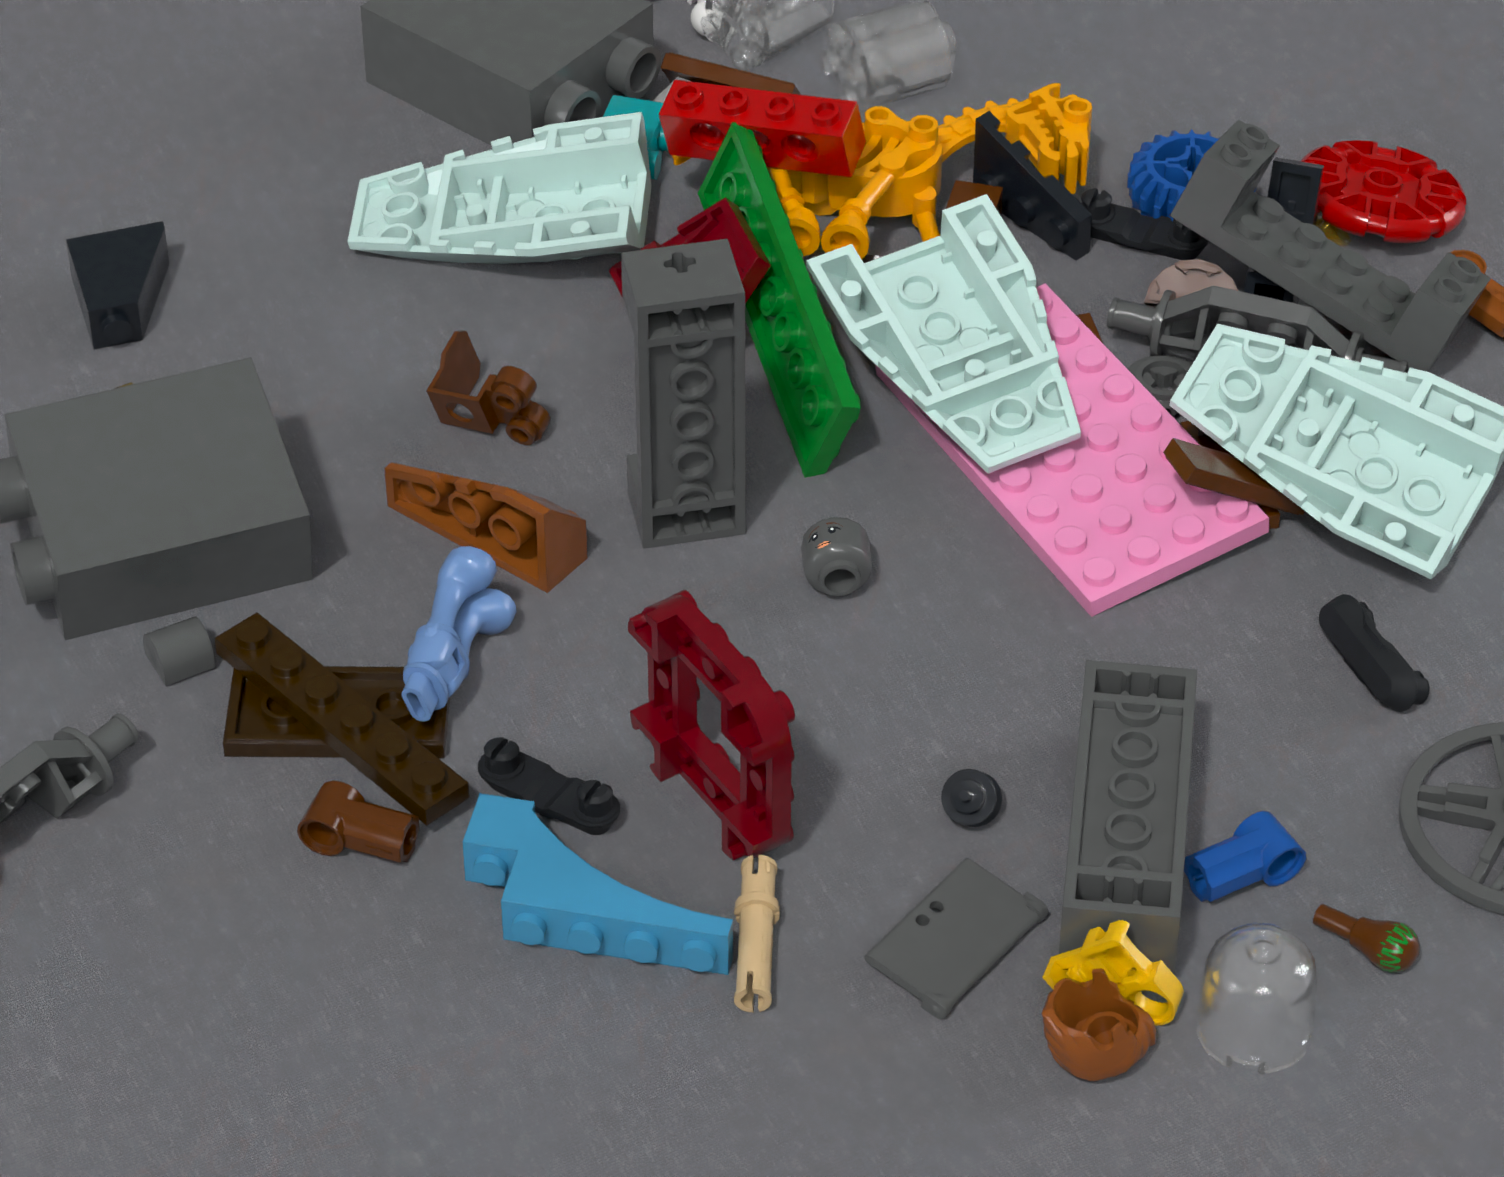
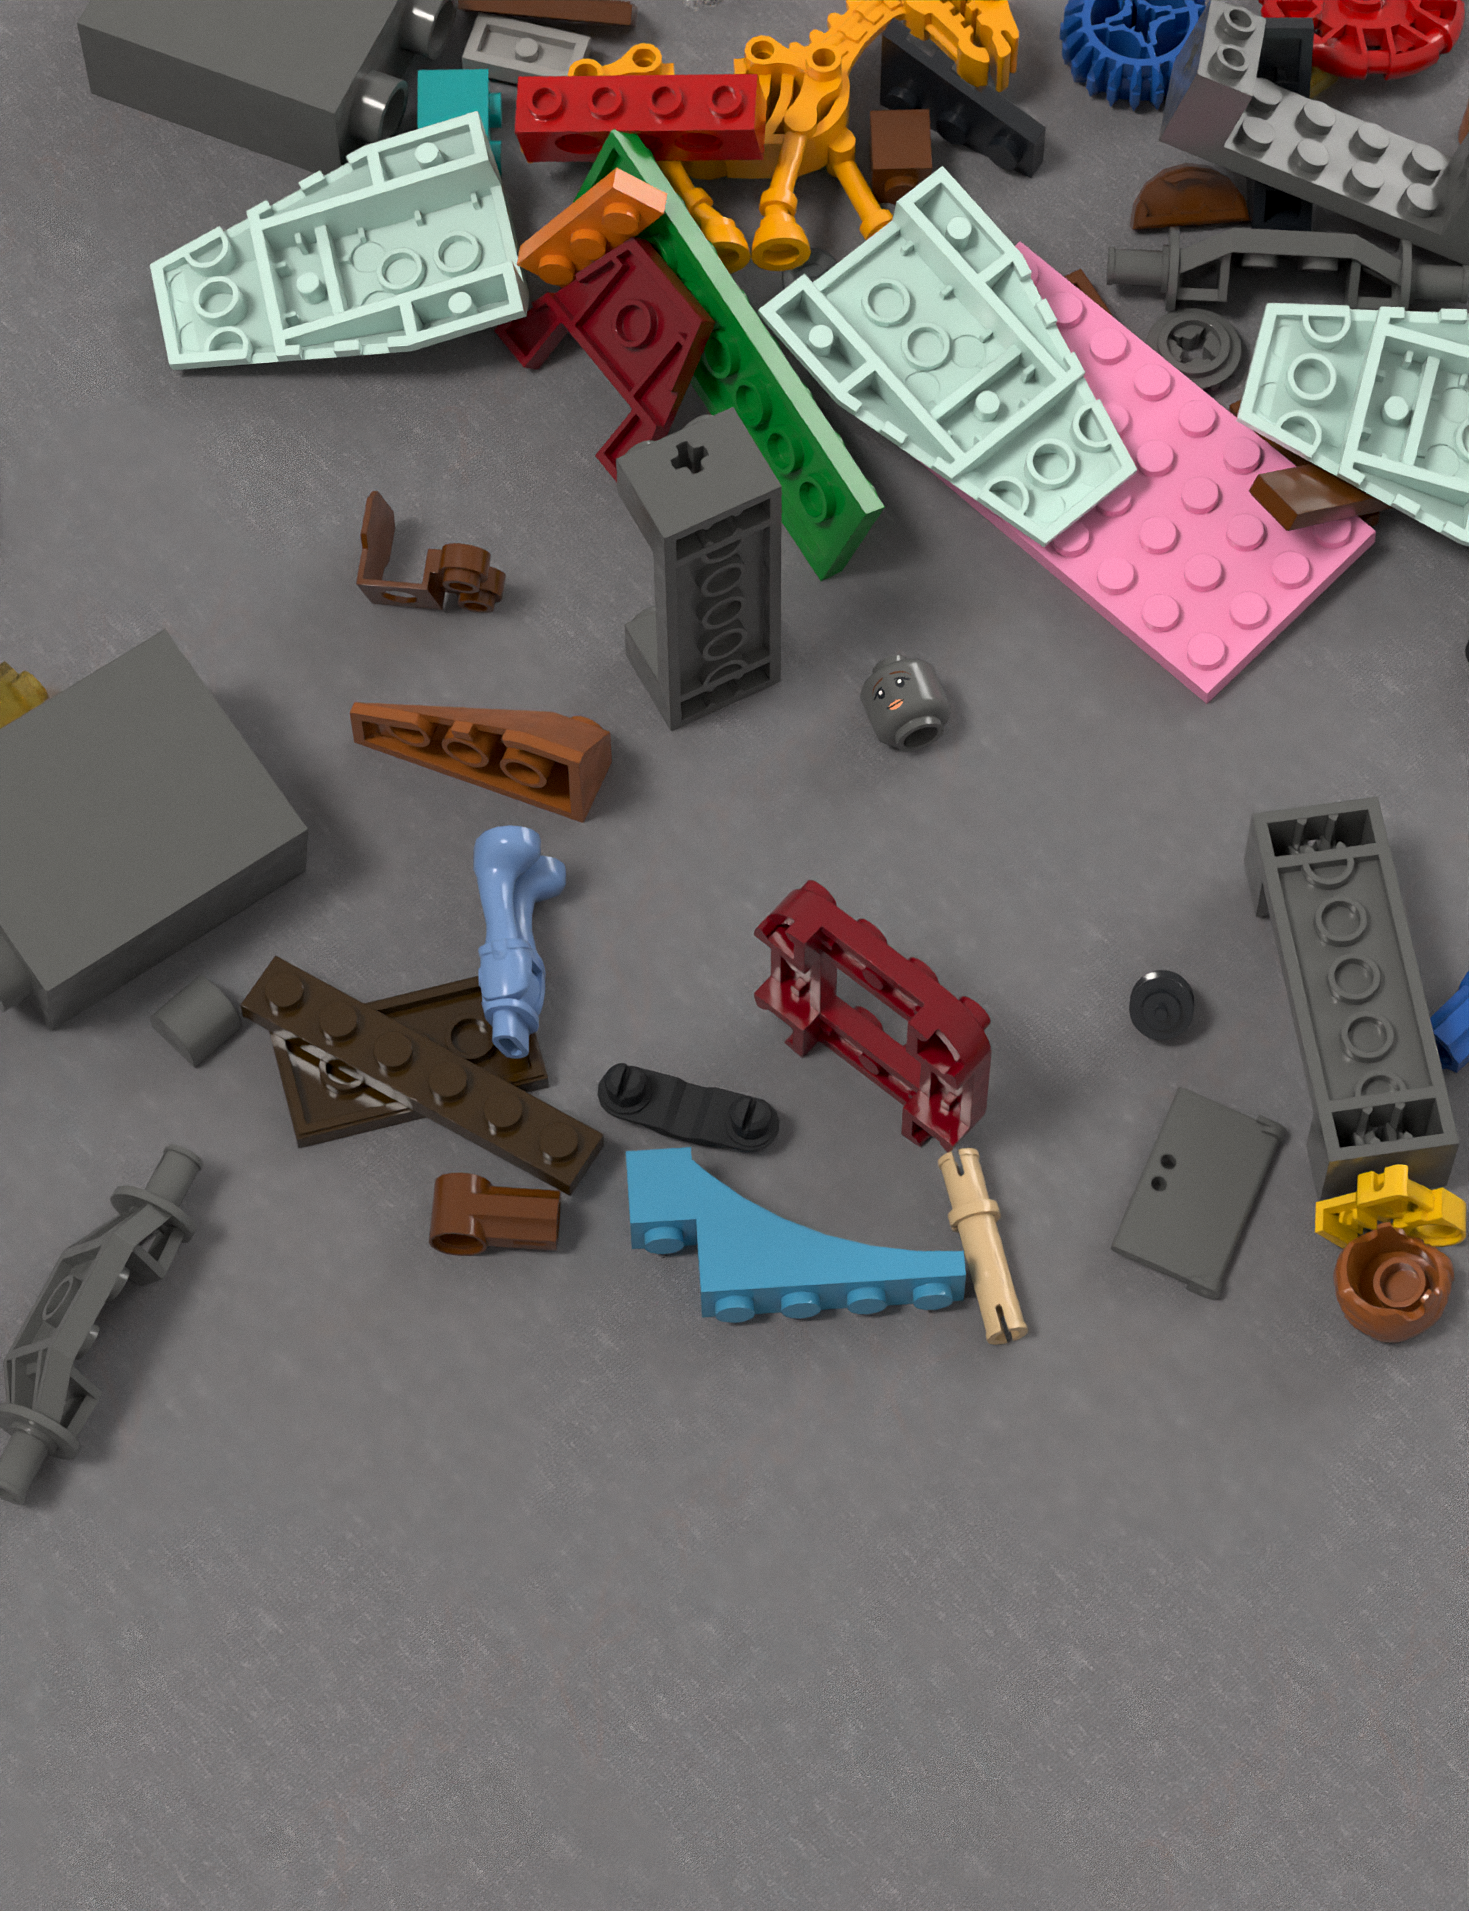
camera: 15 degrees left, 20 degrees up
(710, 178) = (591, 227): none -> orange plate
(1131, 229) = (1095, 120): black piece -> none

